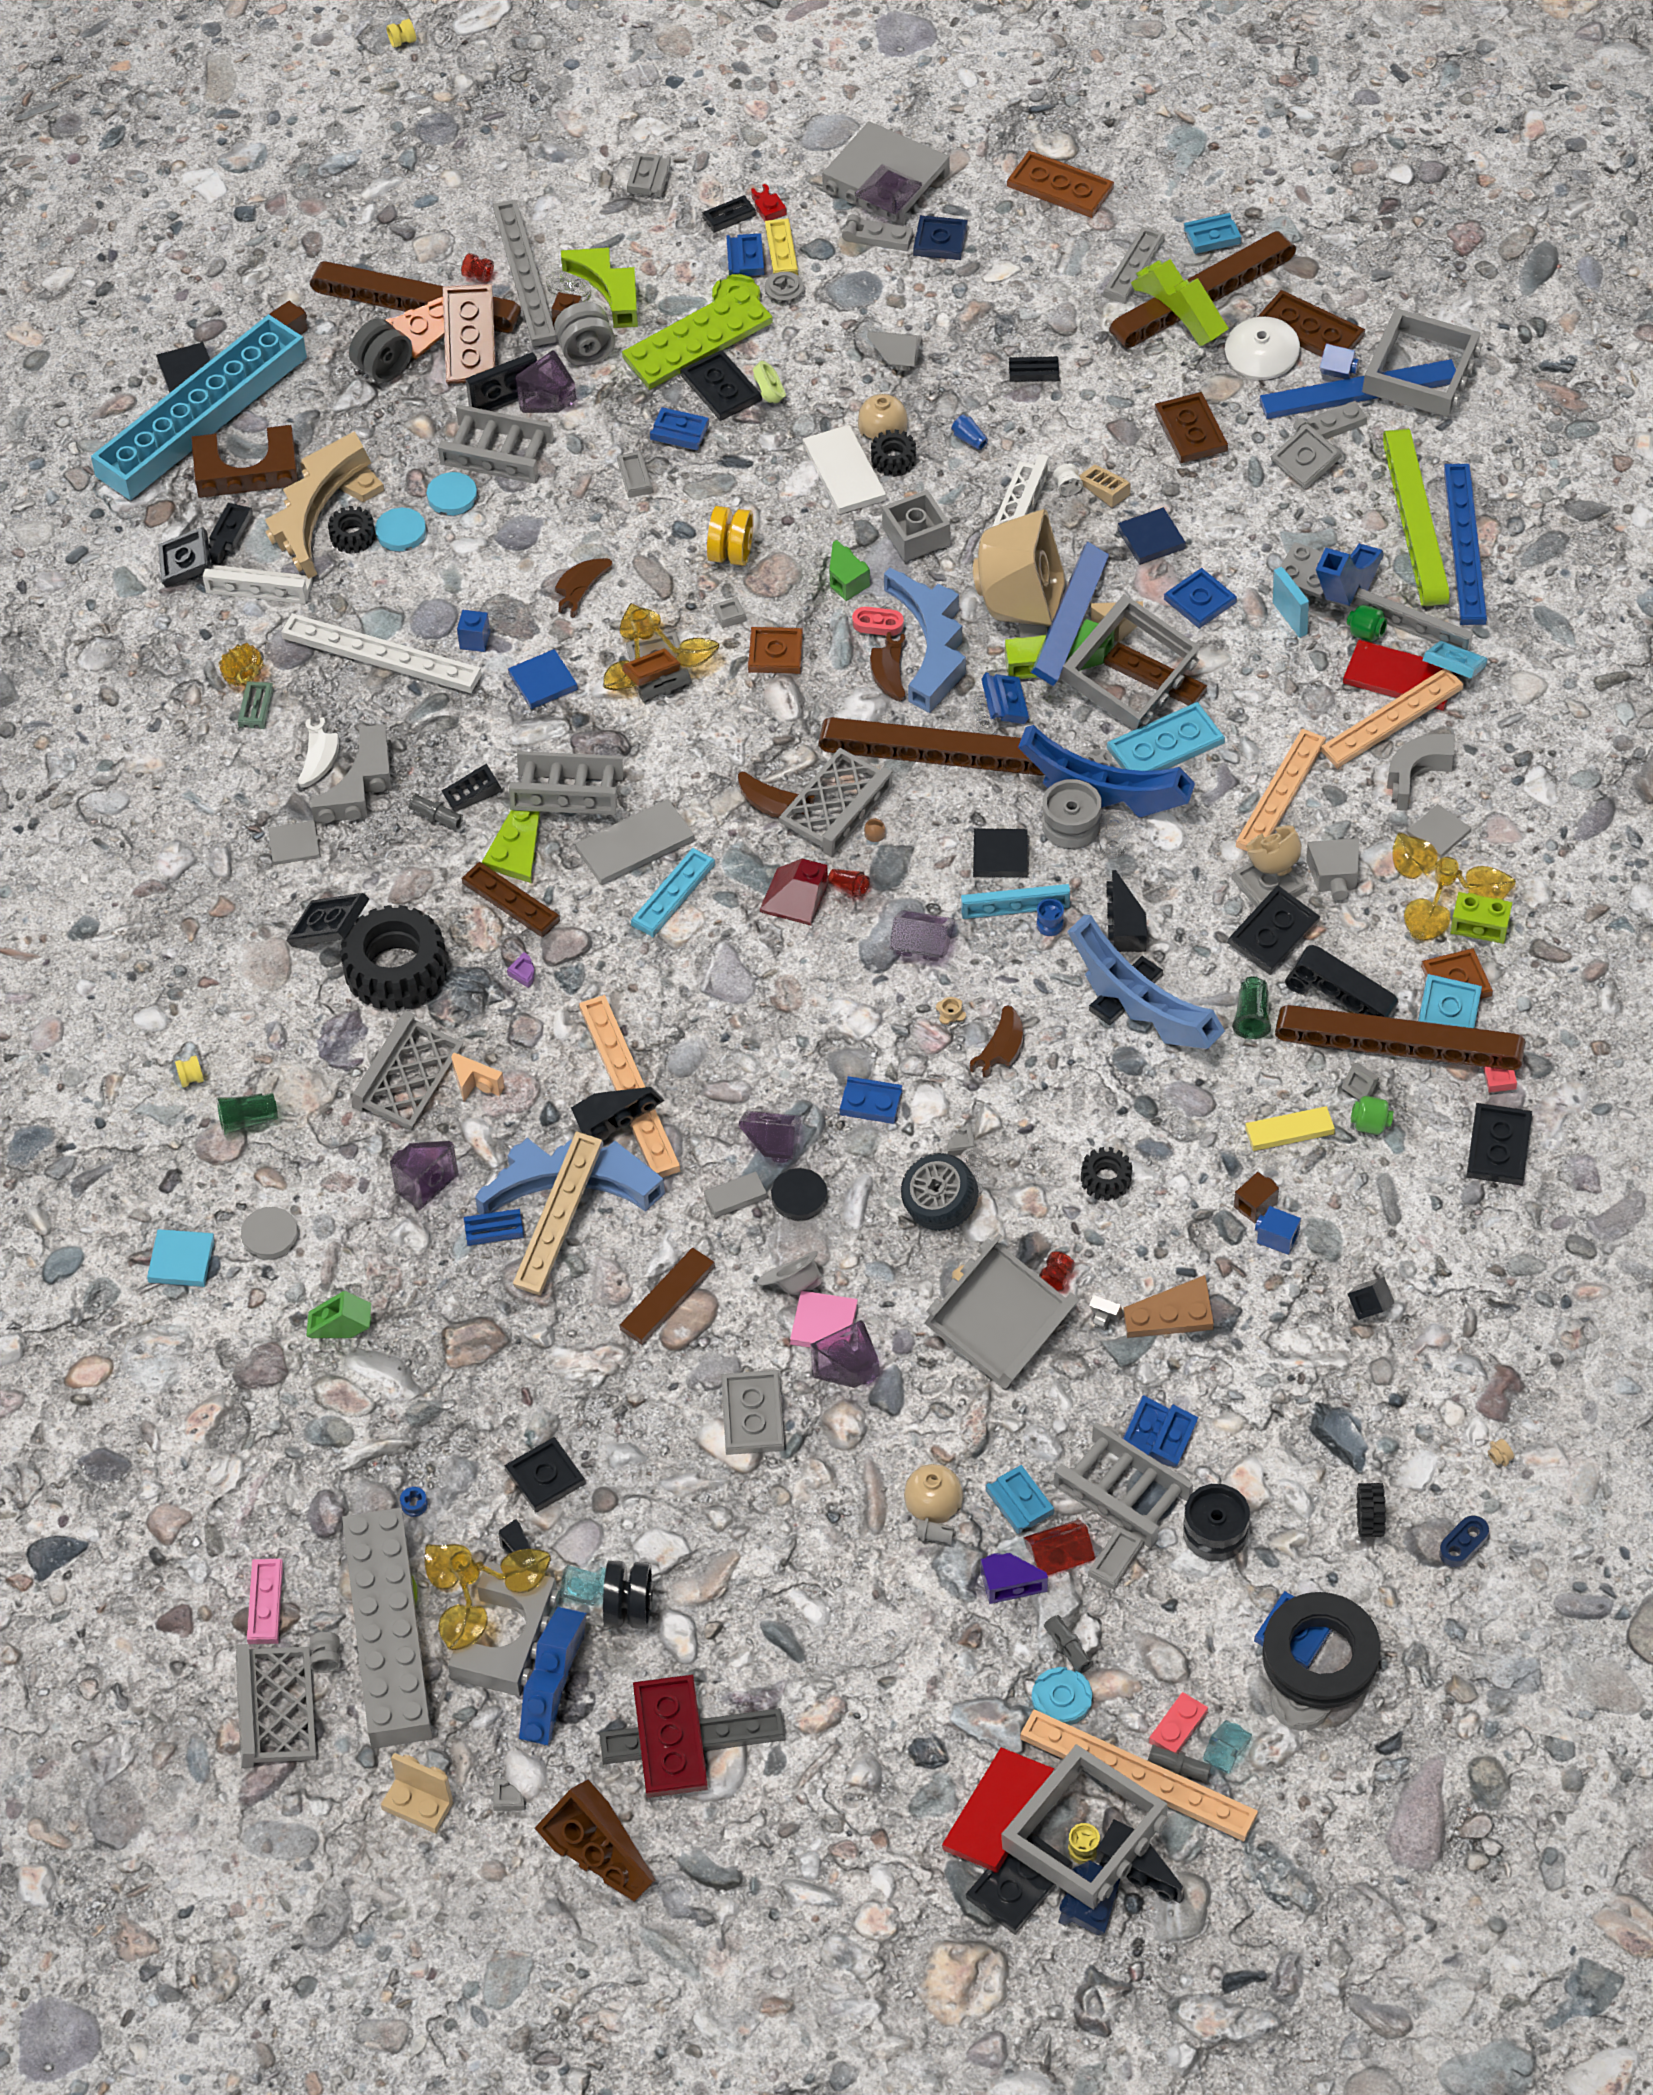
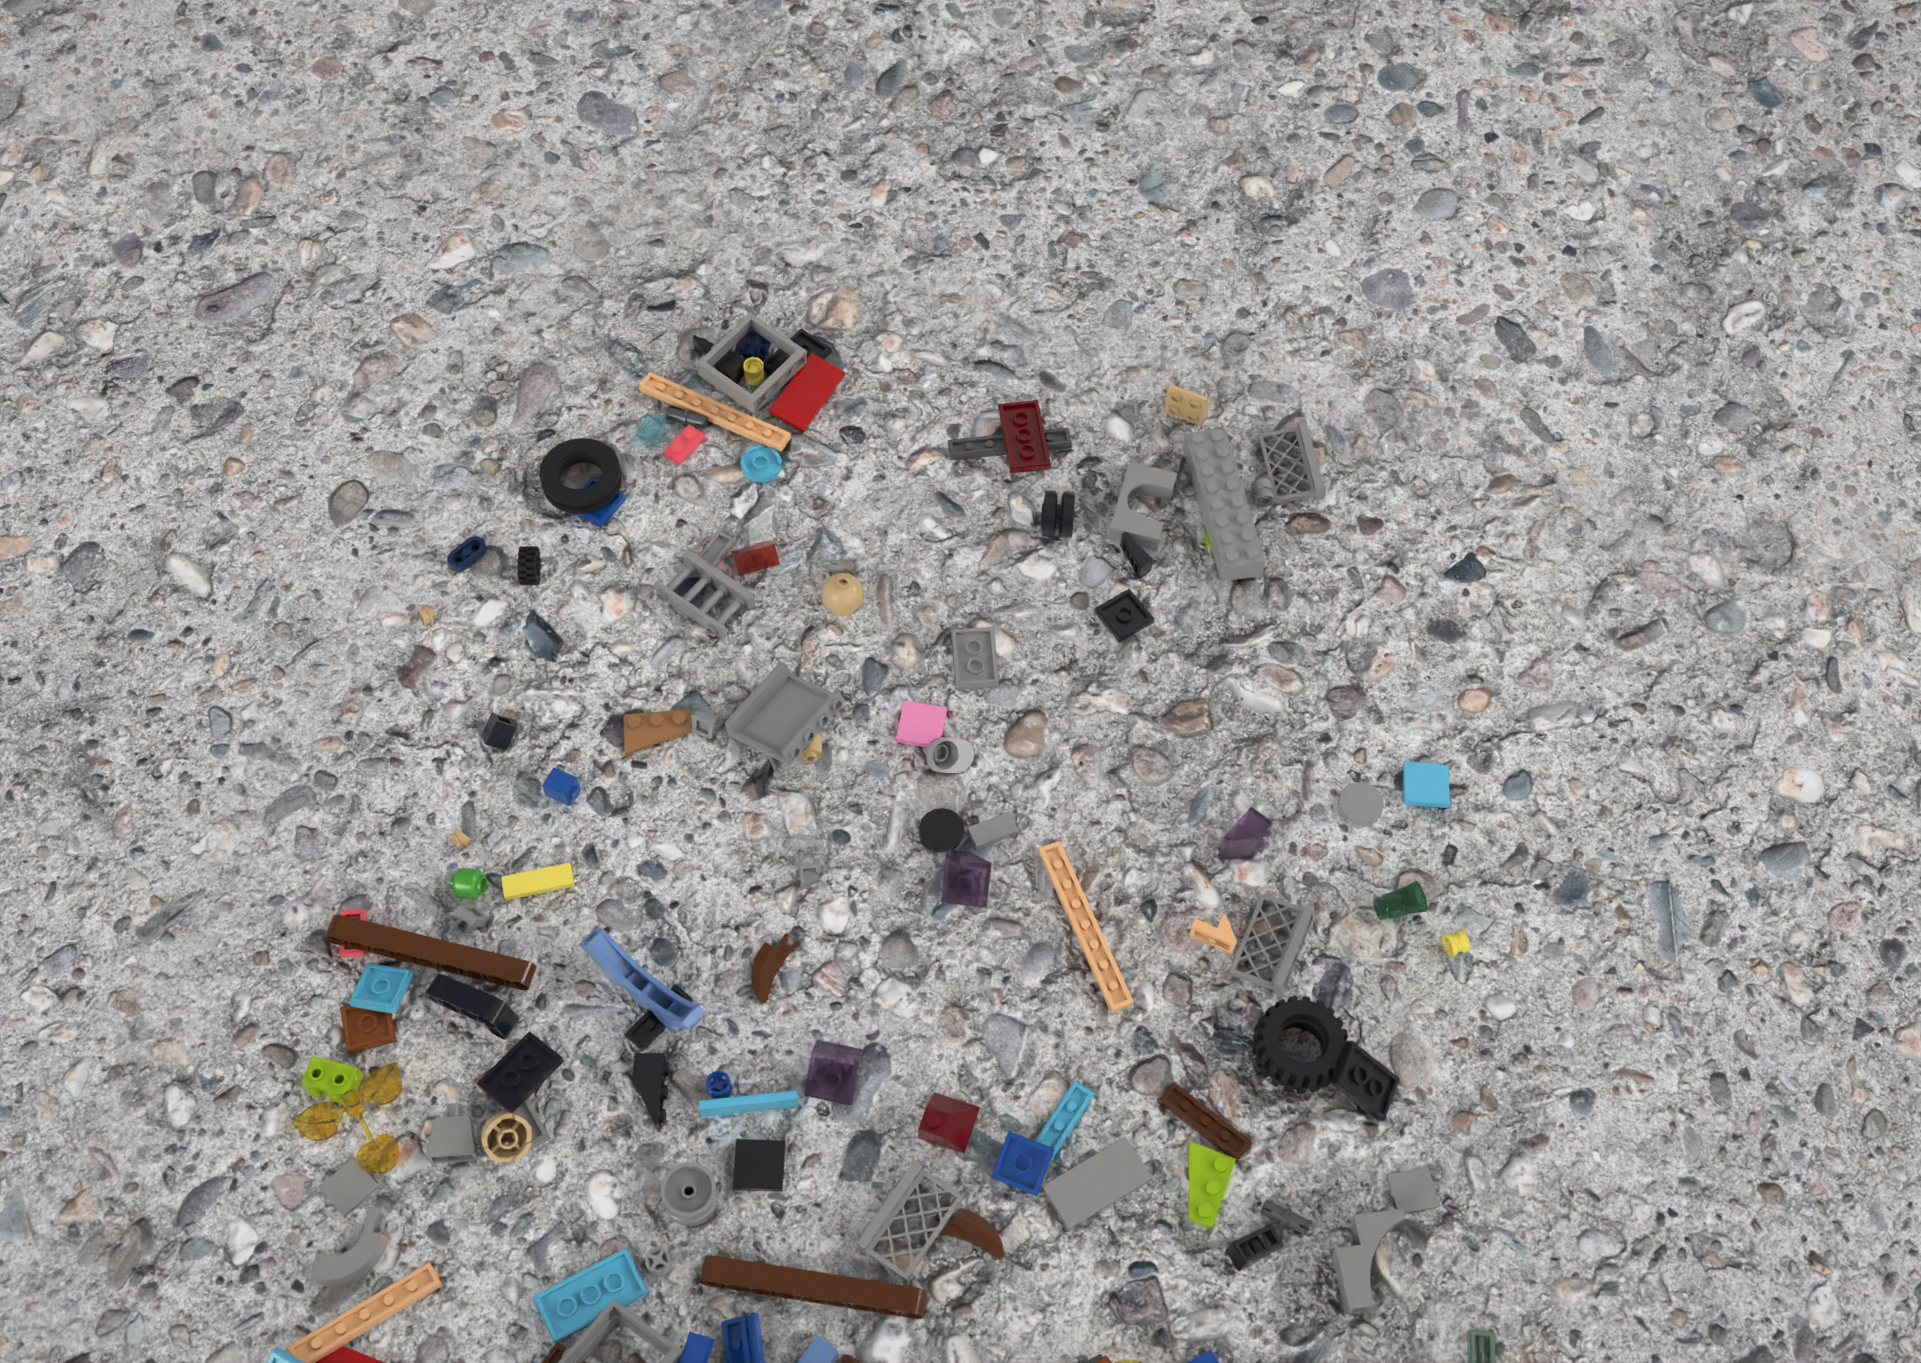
camera: 175 degrees right, 5 degrees up
(265, 1601) = (1310, 533): bright pink tile -> none
(320, 755) = (1406, 1294): white piece -> none
(339, 1317) = (1293, 726): bright green slope -> none
(421, 1505) = (1221, 593): blue bush -> none
(453, 1562) = (1173, 498): clear yellow plant -> none
(493, 1223) = (1191, 797): blue tile -> none
(522, 970) = (1185, 1046): medium lavender tile -> none
(535, 1170) = (1094, 846): medium blue arch -> none
(552, 1664) = (1105, 473): blue arch -> none
(558, 1213) = (1132, 800): tan plate -> none
(566, 798) = (1179, 1218): light grey fence -> none
(582, 1585) = (1089, 533): clear light blue bracket -> none
(593, 1836) = (1070, 384): reddish brown wedge -> none
(609, 1111) = (1098, 890): black slope -> none
(667, 1296) = (1042, 747): reddish brown tile -> none
(714, 851) = (1022, 1163): none -> blue tile
(845, 1357) = (905, 683): clear purple slope -> none
(851, 882) = (898, 1130): clear red cone -> none
(871, 1100) = (882, 914): blue plate -> none
(874, 830) = (874, 1198): medium nougat hinge -> none
(939, 1191) = (828, 814): wheel -> none
(950, 1004) = (815, 990): tan plate -> none
(1011, 1578) = (790, 532): dark purple slope -> none
(1019, 1499) = (780, 587): dark azure plate -> none
(1057, 1269) = (738, 758): clear red wheel -> none
(1068, 1644) = (753, 493): dark grey pin -> none
(1102, 1186) = (693, 828): black tyre -> none
(1140, 790) = (654, 1226): blue arch -> none
(1160, 1430) = (675, 637): blue slope -> none
(1216, 1522) = (641, 560): black wheel -> none
(1252, 1010) = (551, 987): clear green plant -> none
(1256, 1196) = (574, 815): reddish brown brick -> none
(1282, 787) = (488, 1234): light nougat tile -> none
(1393, 1171) = (460, 839): none -> tan plate
(1499, 1144) = (368, 866): black tile -> none

